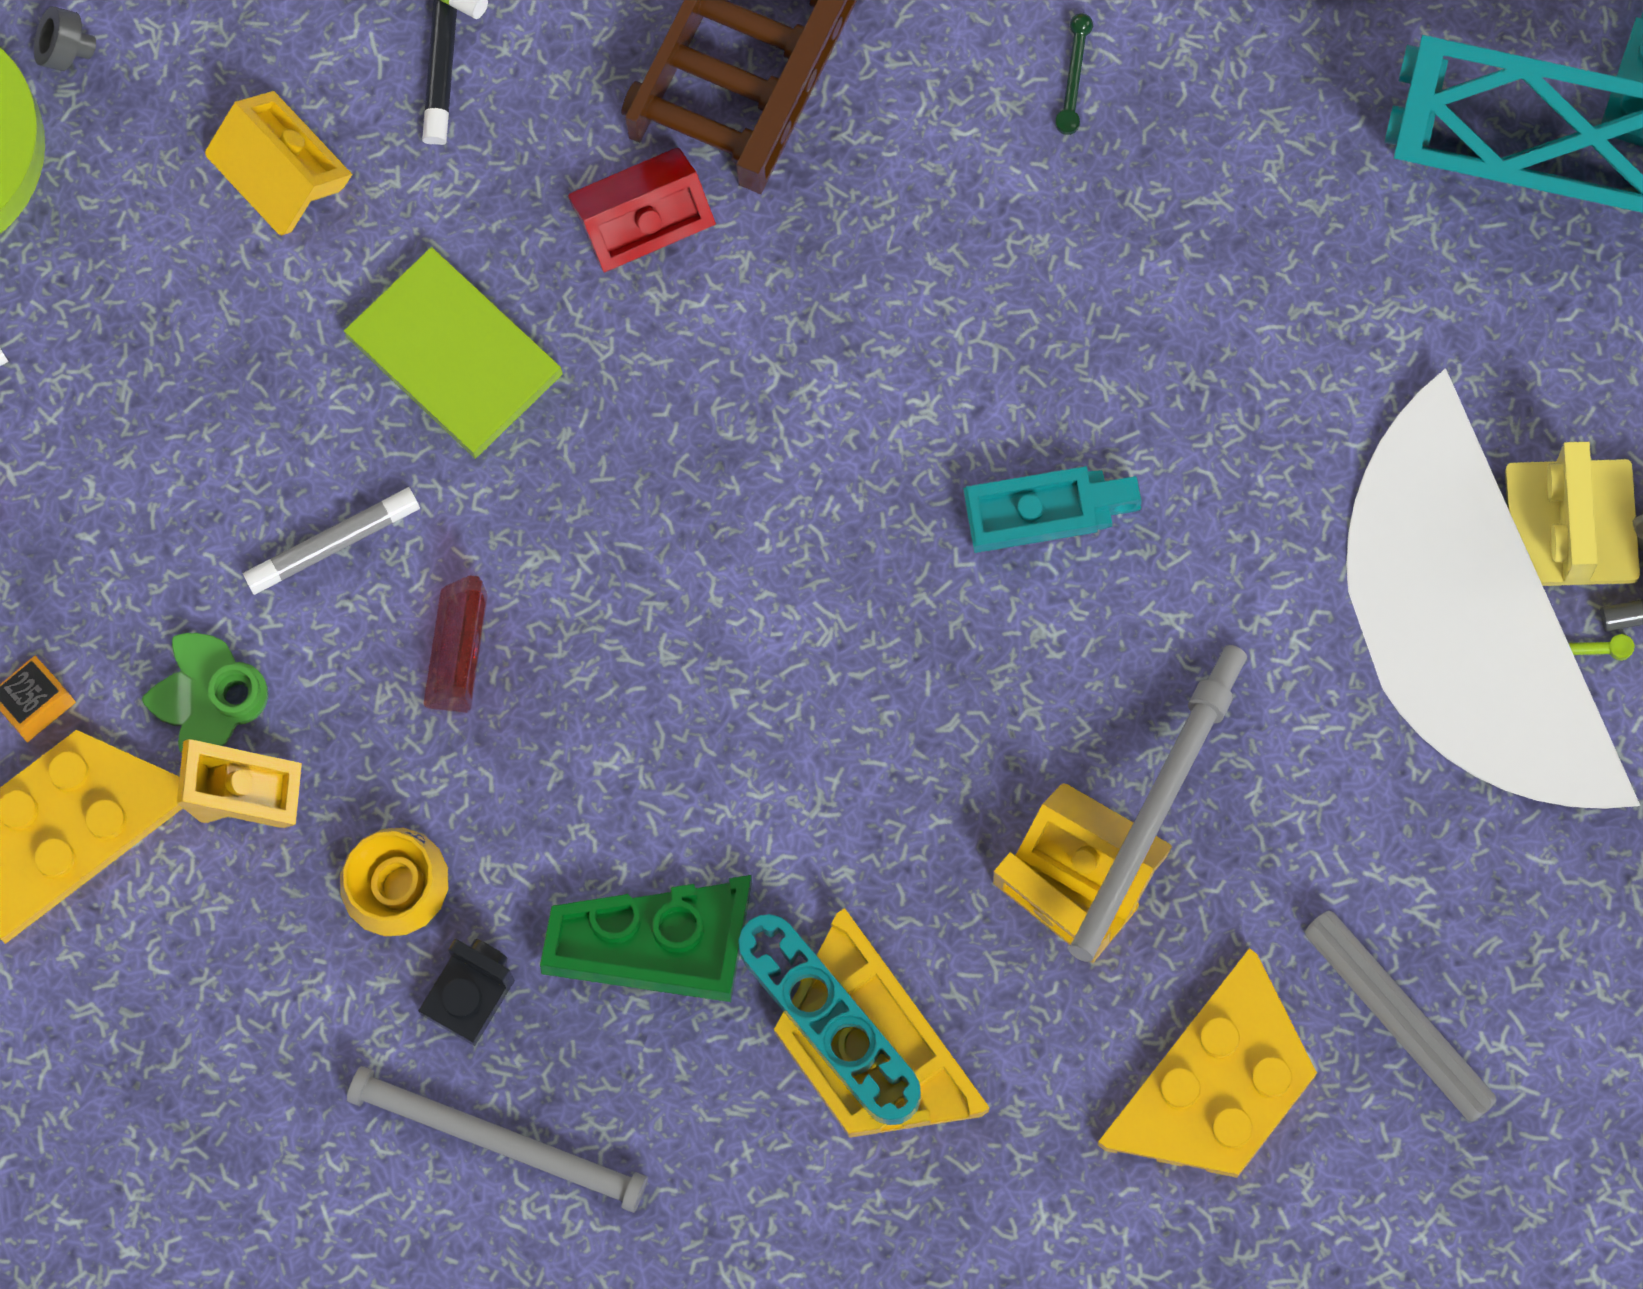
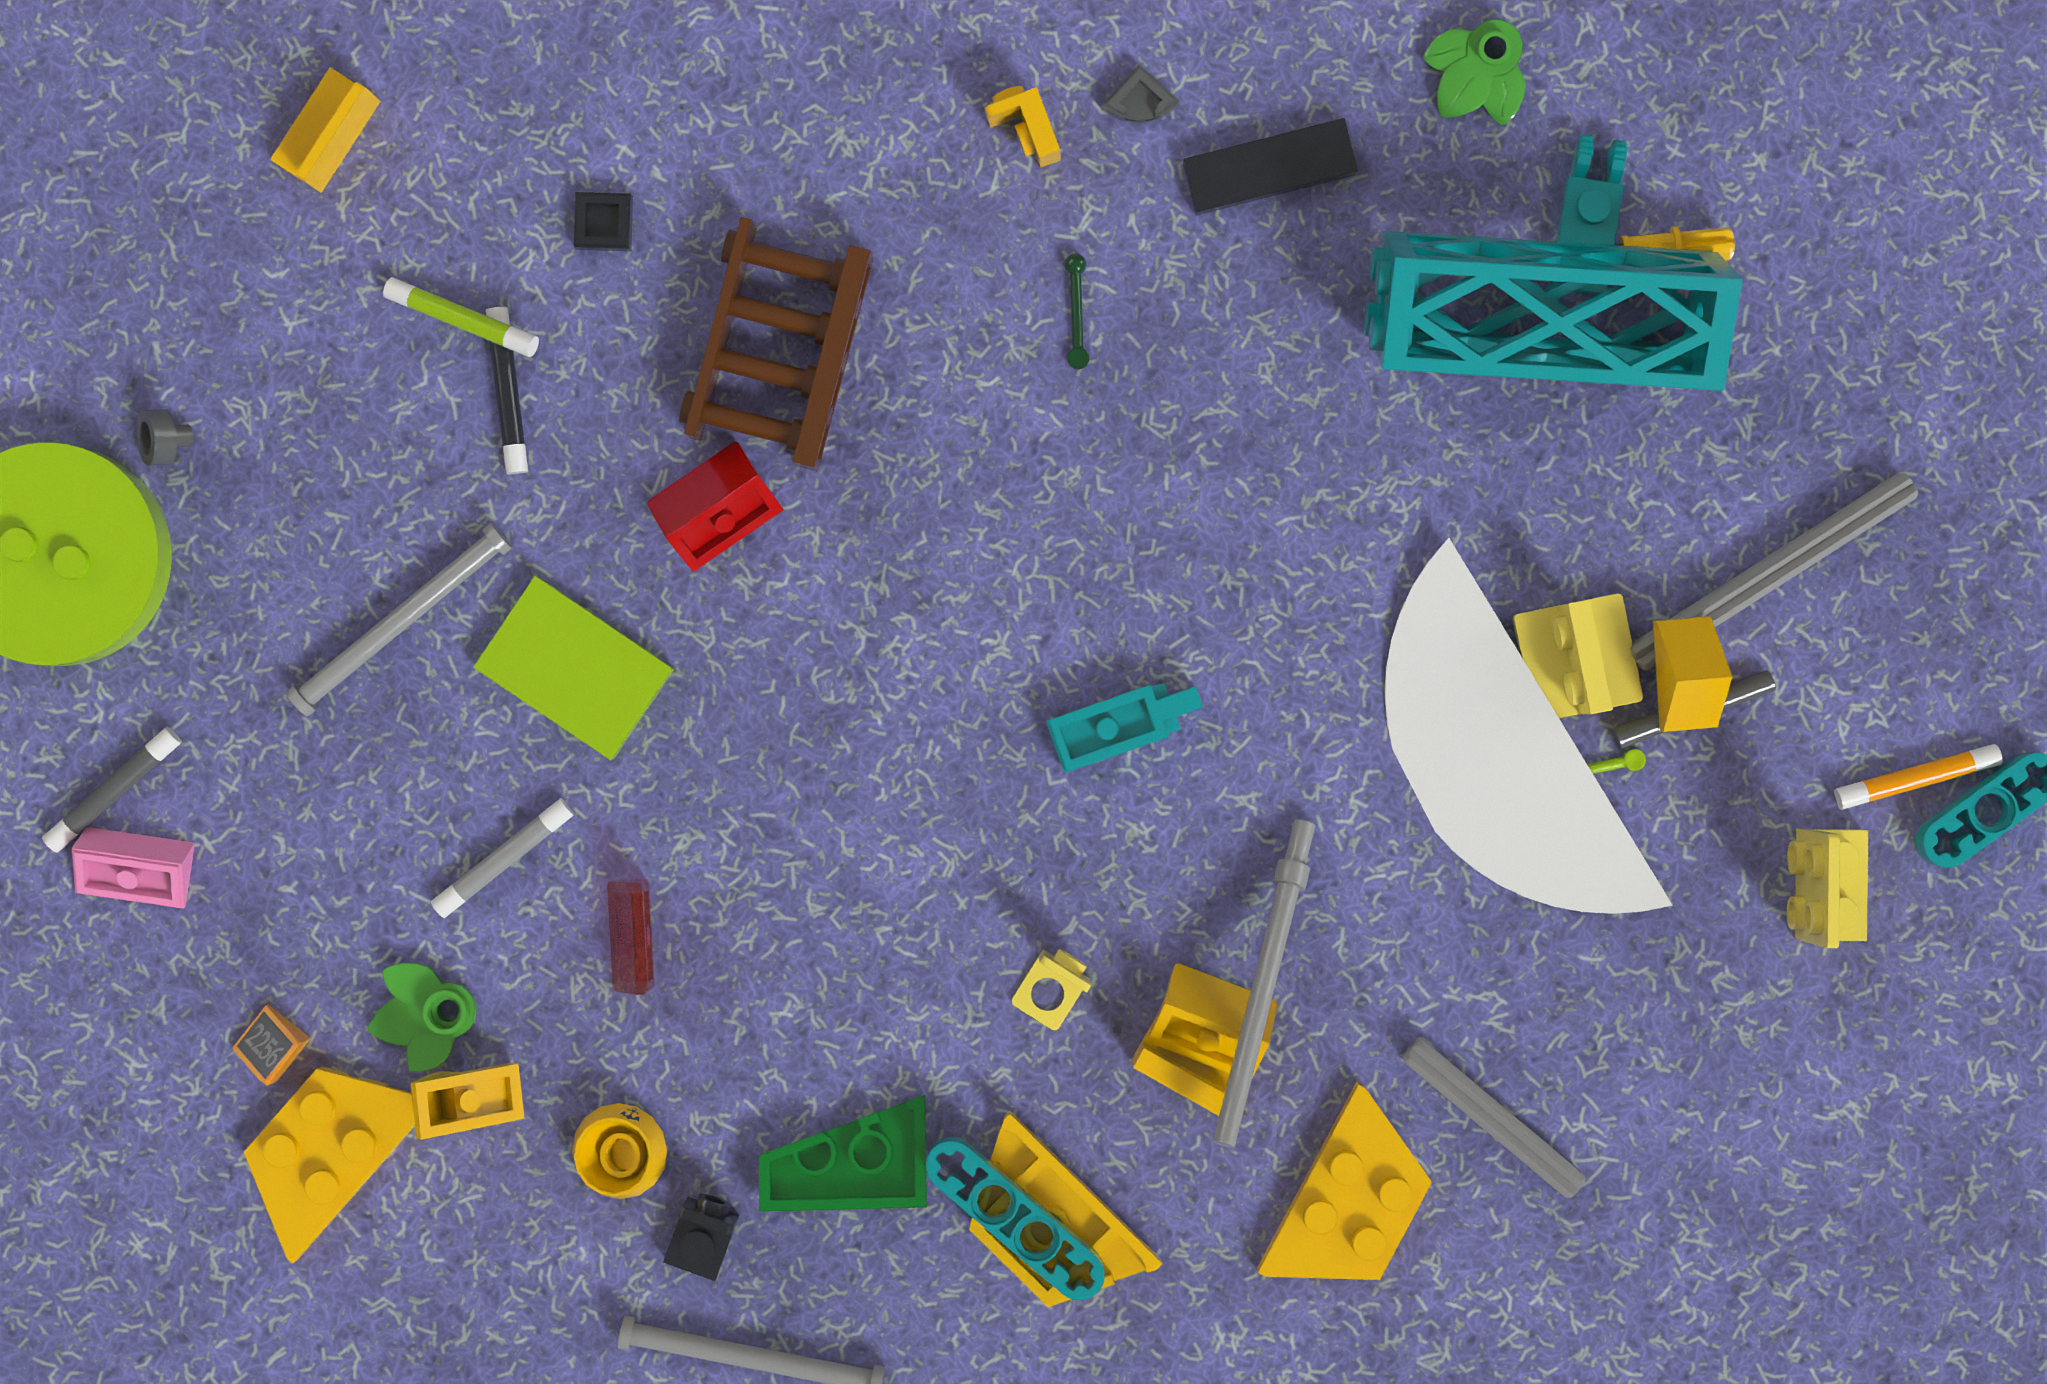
camera: 15 degrees left, 15 degrees up
(274, 269) = (398, 620): none -> light grey bar
(275, 160) = (379, 516): yellow panel -> none
(934, 762) = (1067, 972): none -> light yellow bracket

